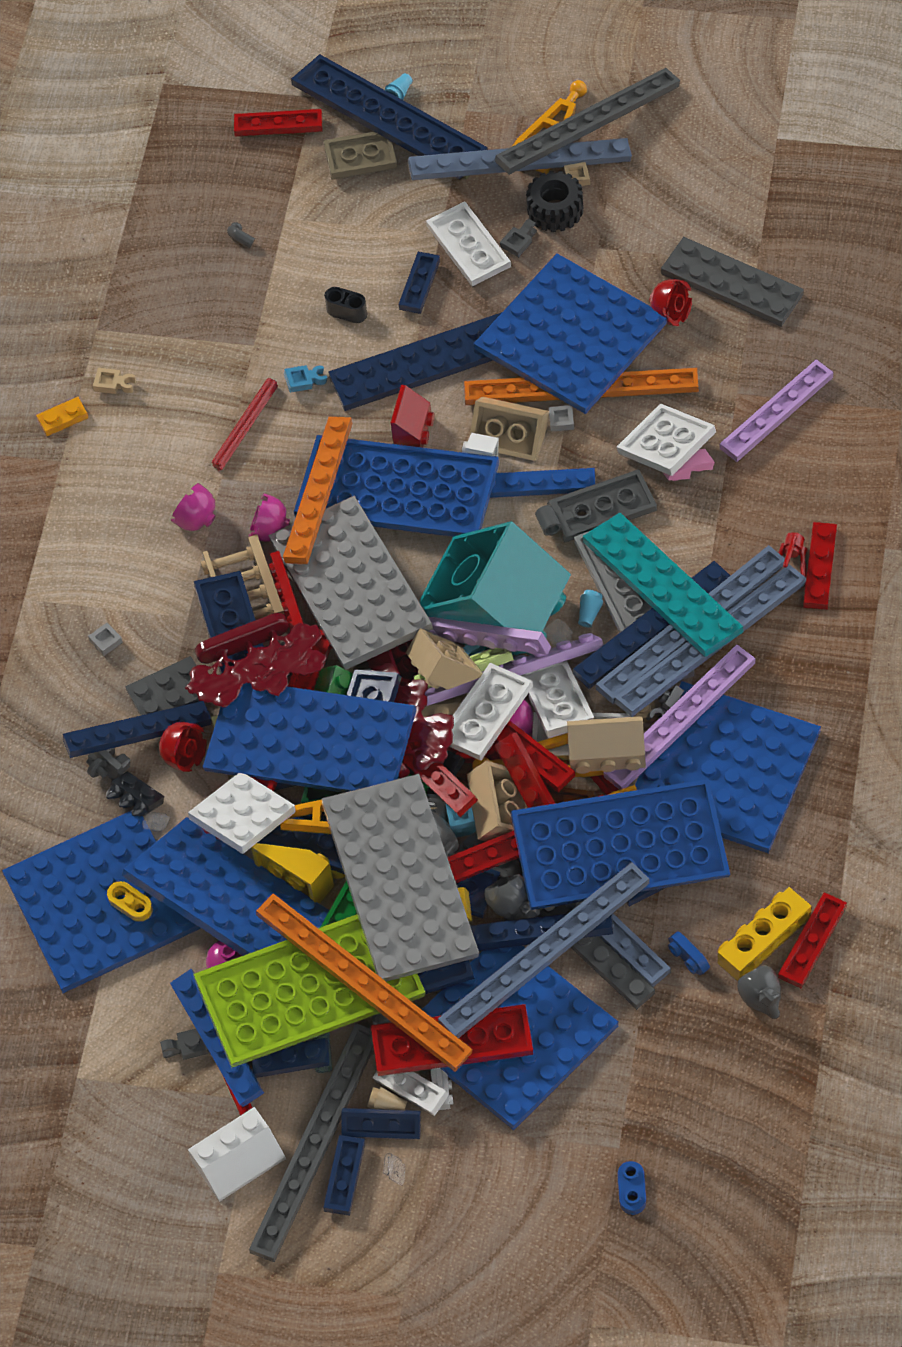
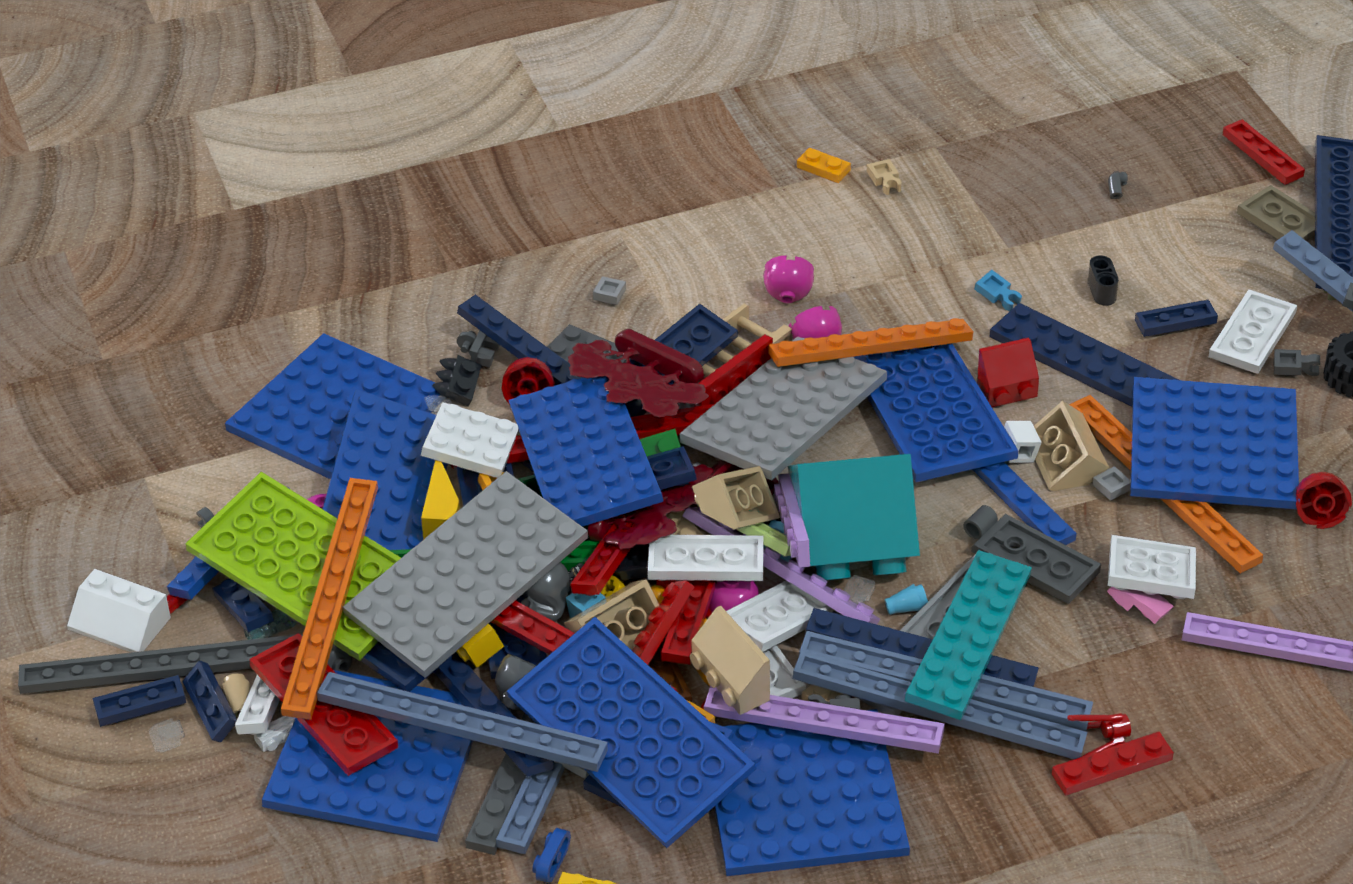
camera: 55 degrees right, 15 degrees down
(131, 902) = (334, 418): yellow plate -> none
(244, 423) = (914, 276): red axle -> none

